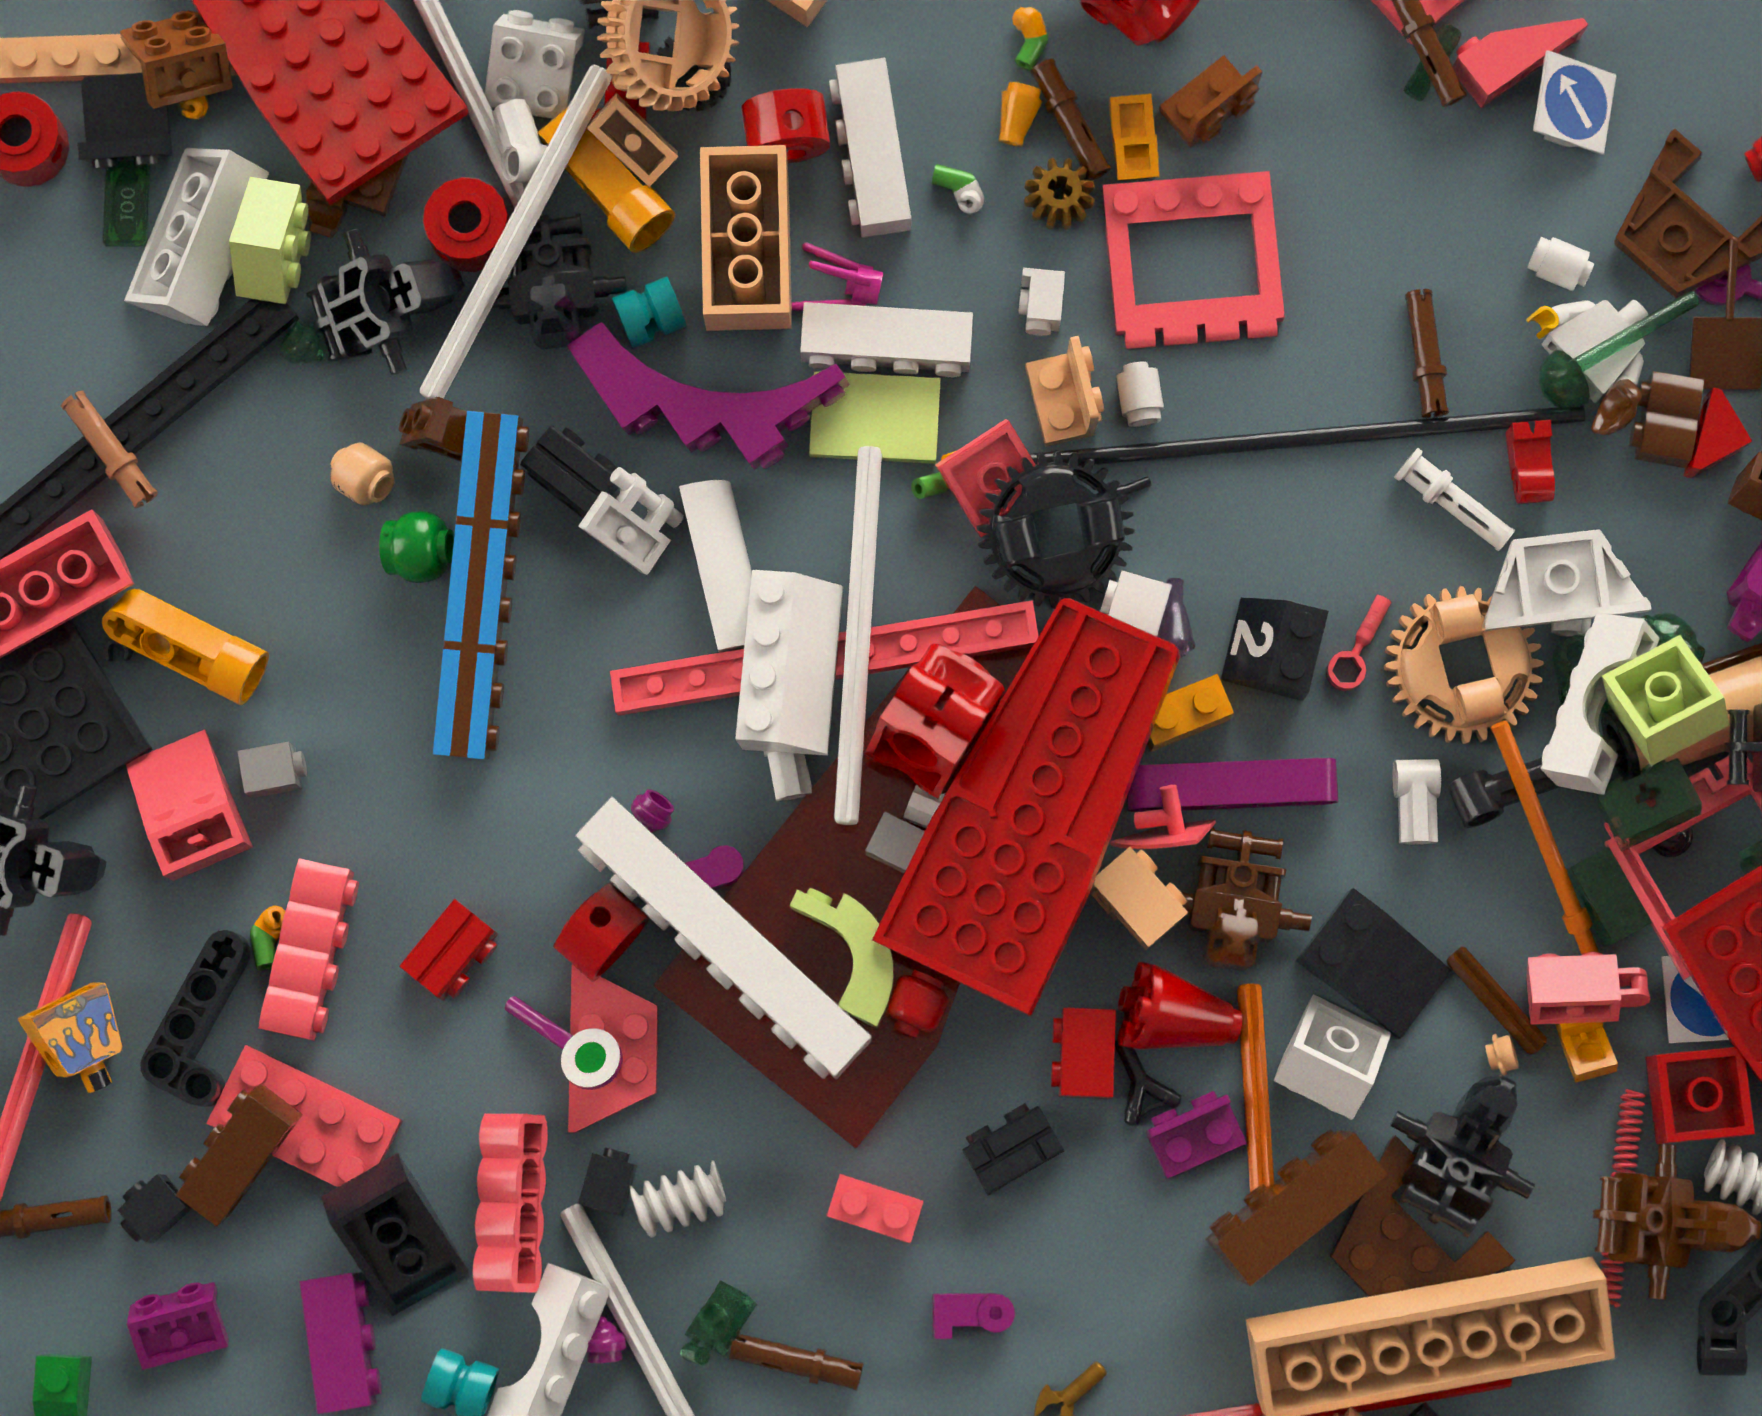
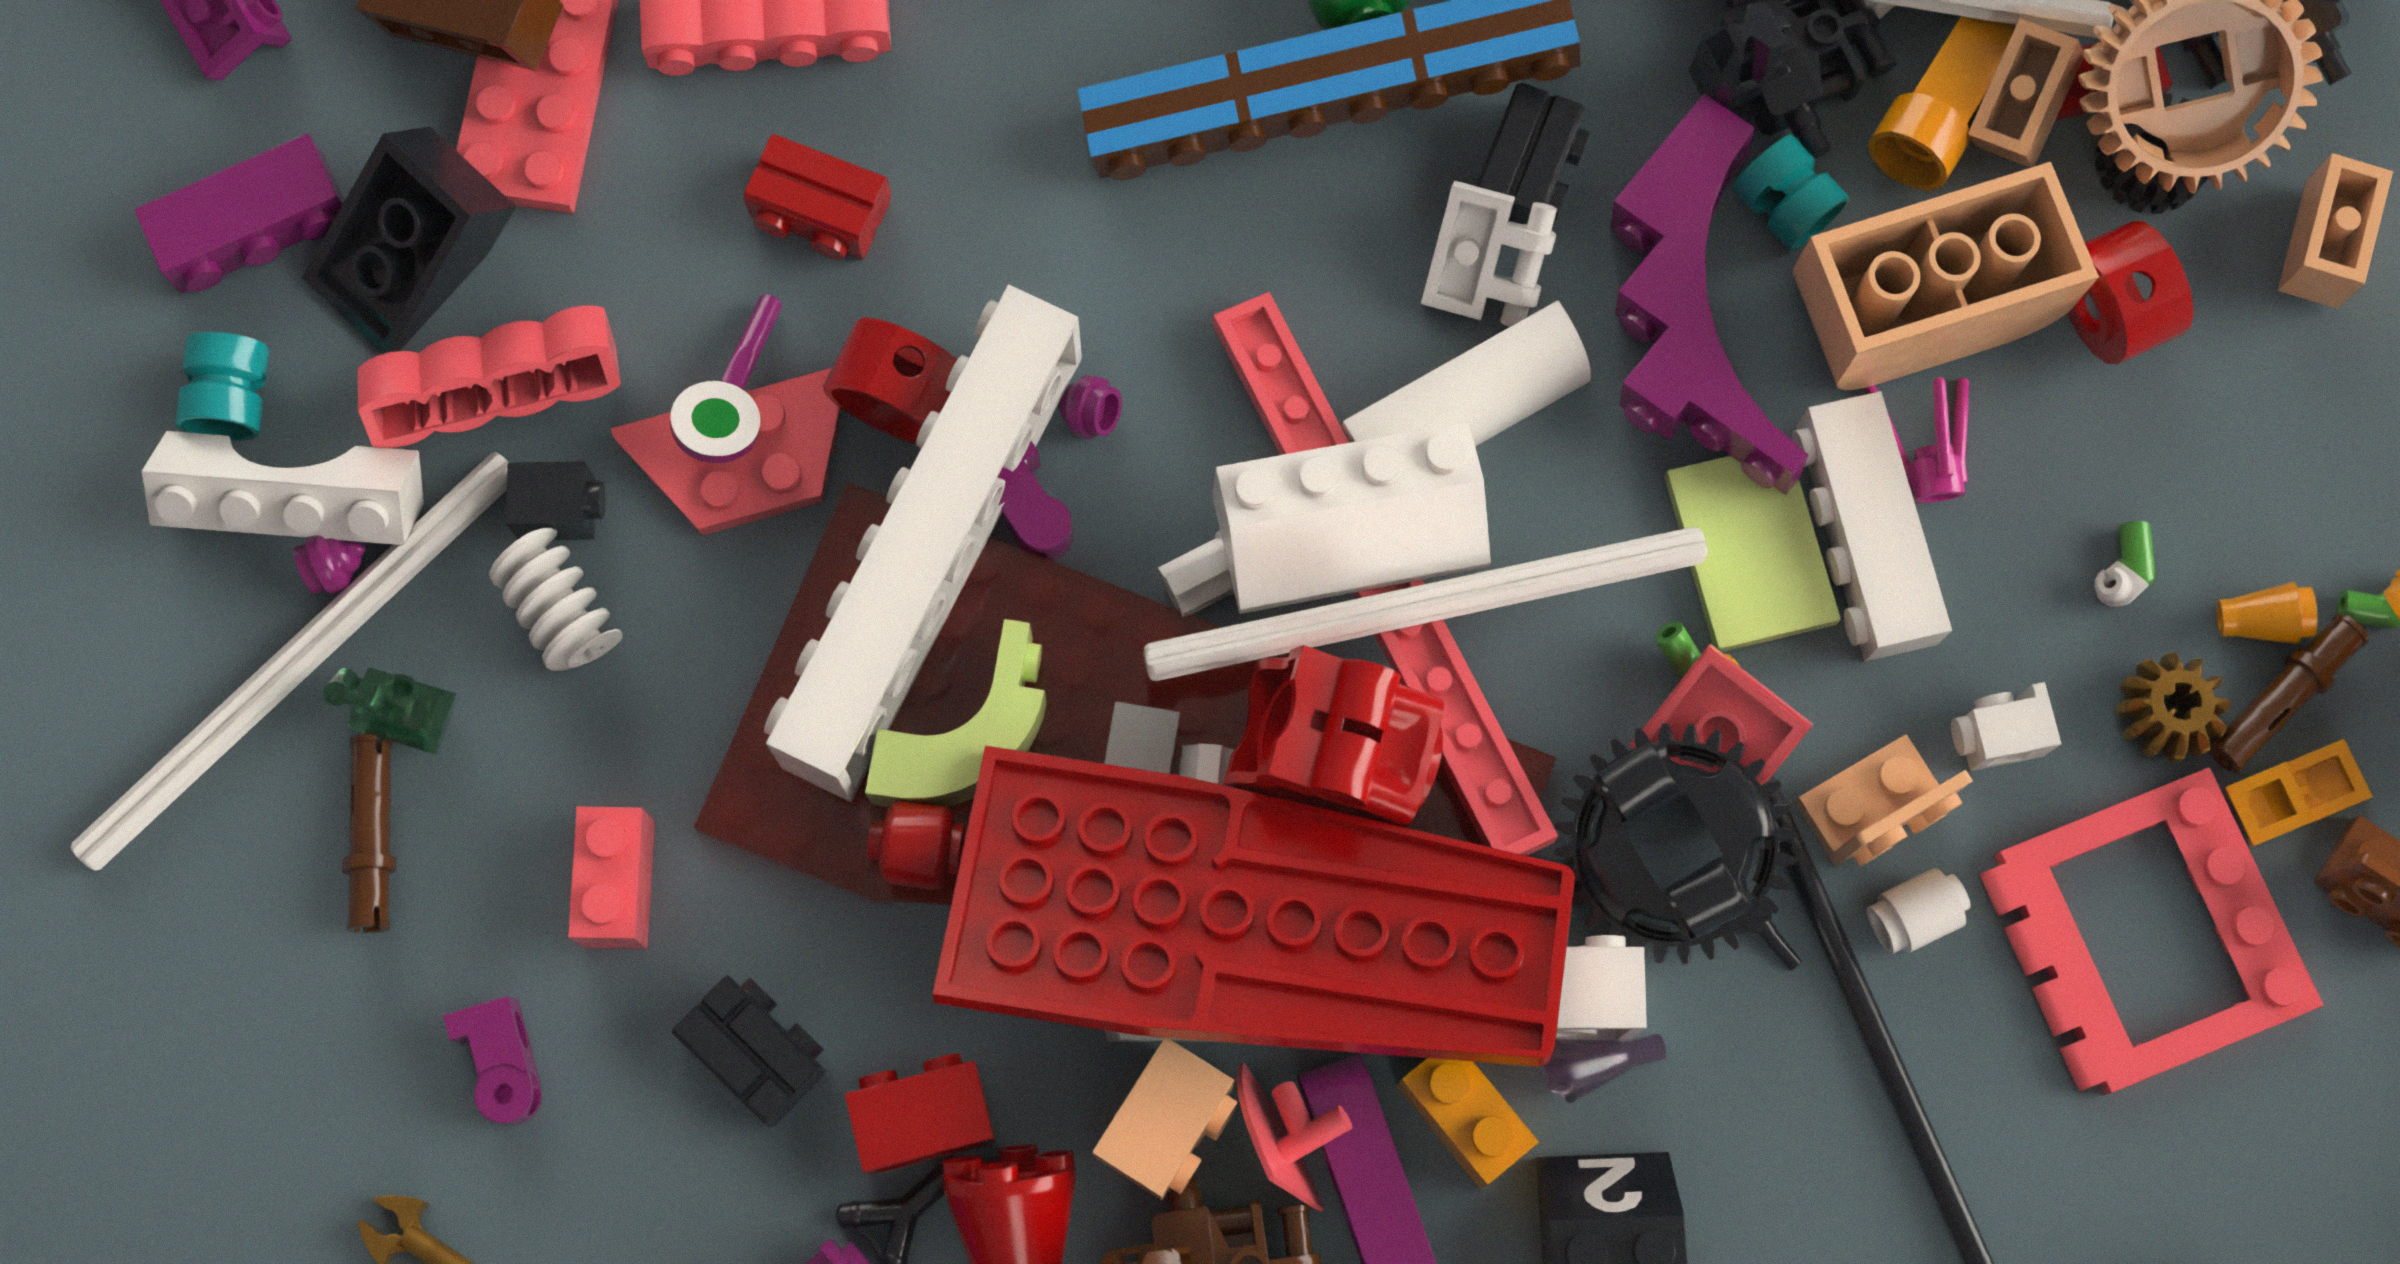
camera: 70 degrees right, 5 degrees down
(872, 147) = (2140, 425): white brick -> none

